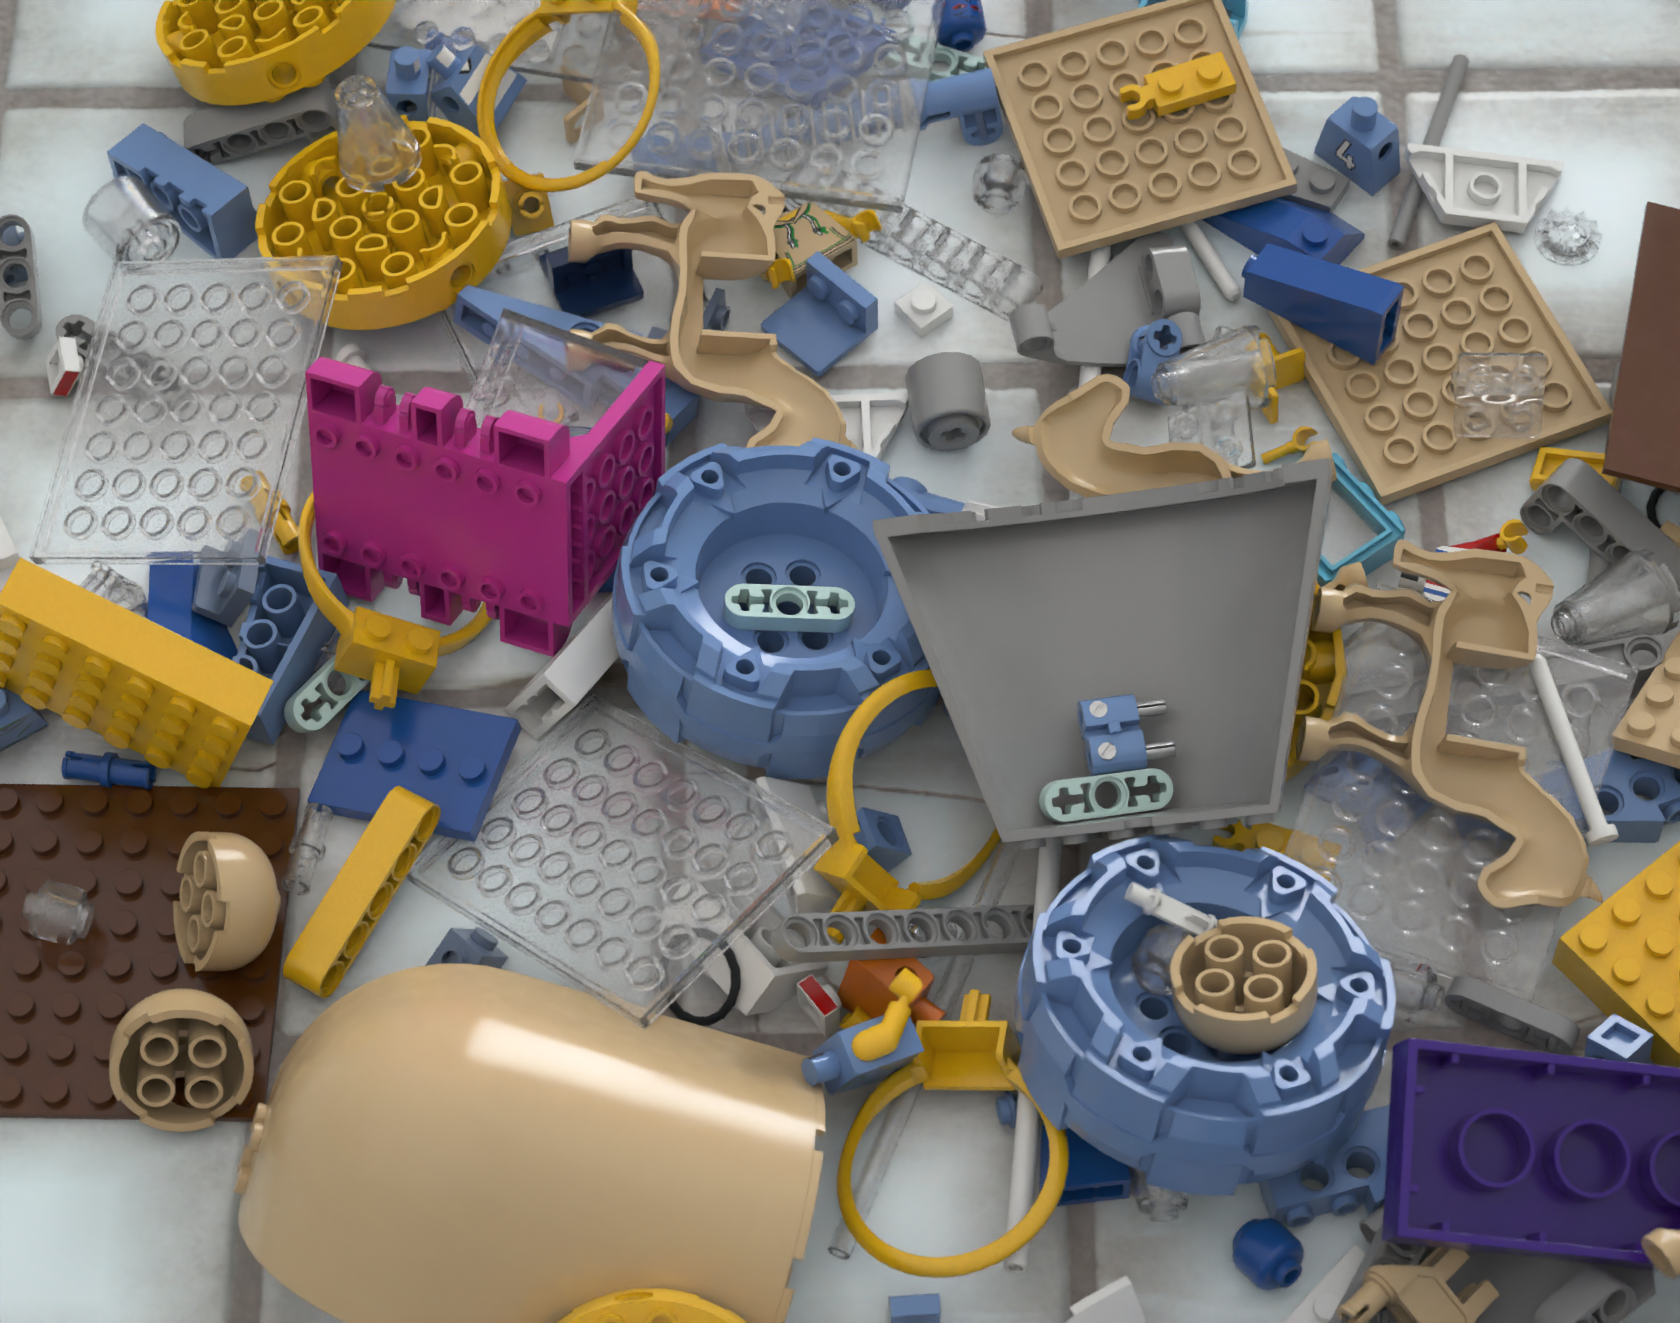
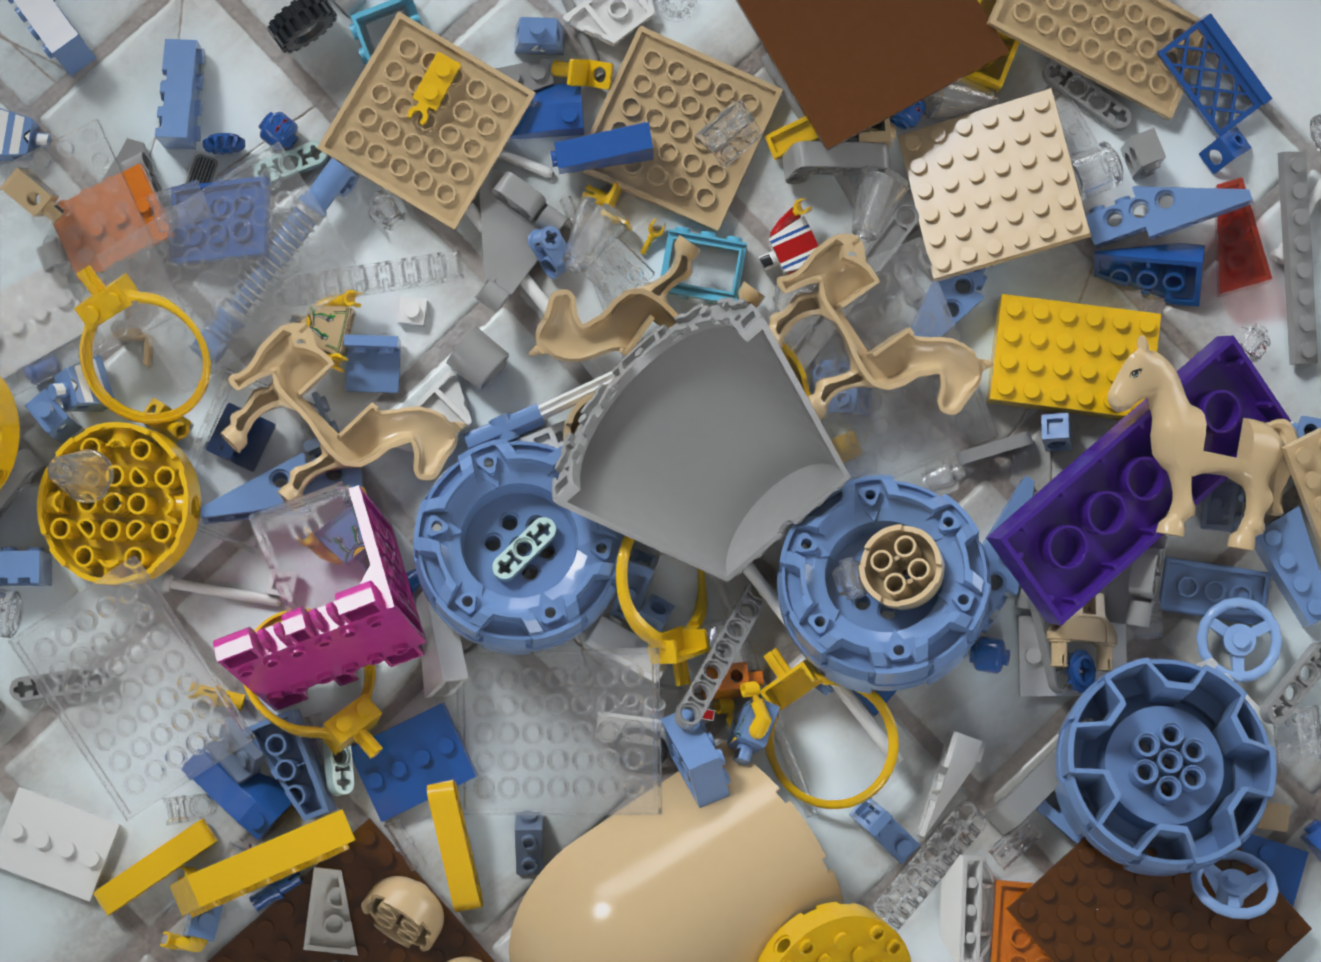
camera: 45 degrees left, 25 degrees up
(63, 366) = (38, 712): white plate -> none
(135, 840) = (328, 915): none -> white wing
(756, 1013) = (697, 759): none -> medium blue brick
(898, 780) = (640, 572): none -> medium blue bracket
(1076, 811) = (756, 508): light aqua beam -> none
(1114, 734) = (725, 481): medium blue piece -> none
(1170, 910) = (841, 555): white piece -> none
(1377, 217) = (582, 72): none -> yellow bracket
(1600, 831) = (966, 331): white bar -> none

